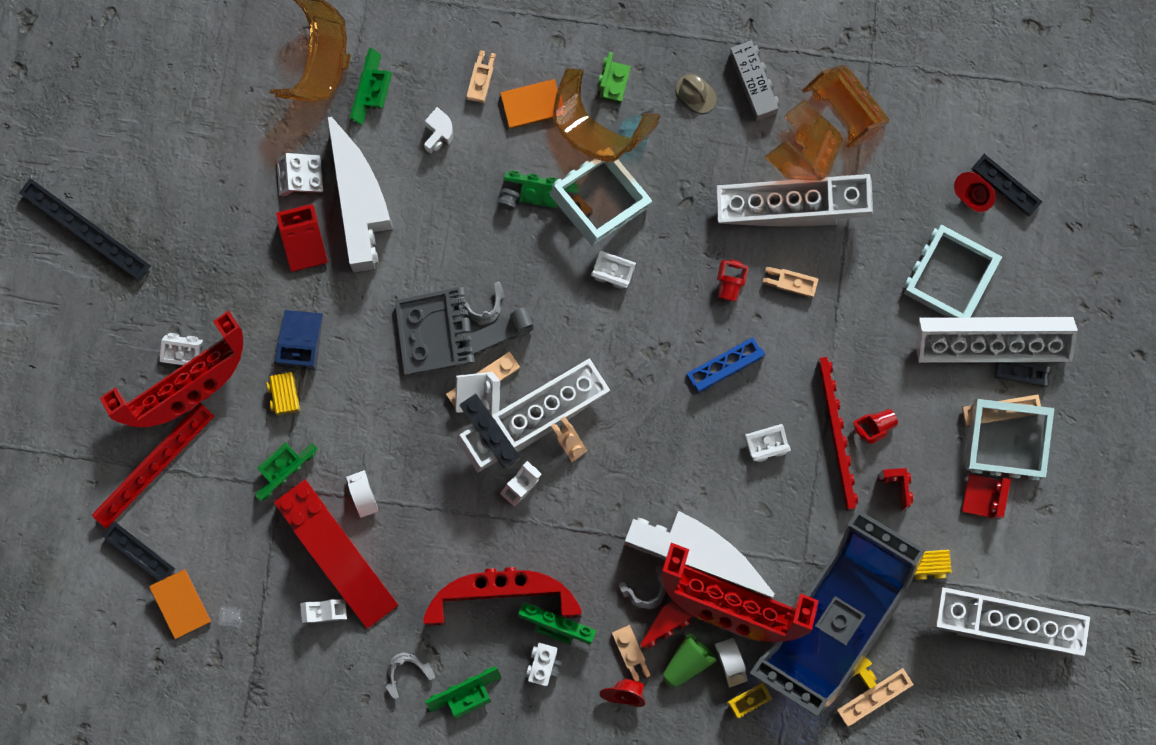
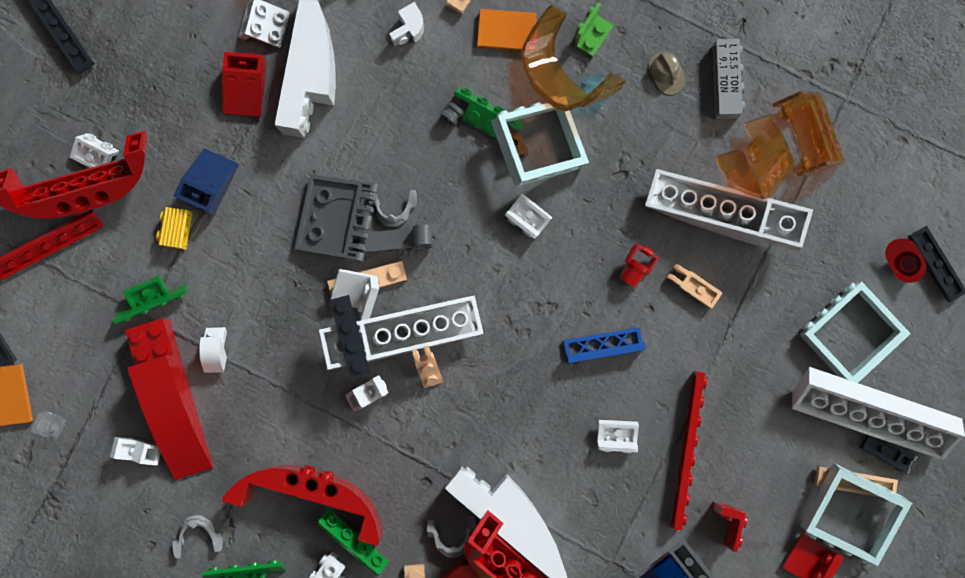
camera: 20 degrees right, 5 degrees up
(878, 423) = (731, 455): red piece -> none

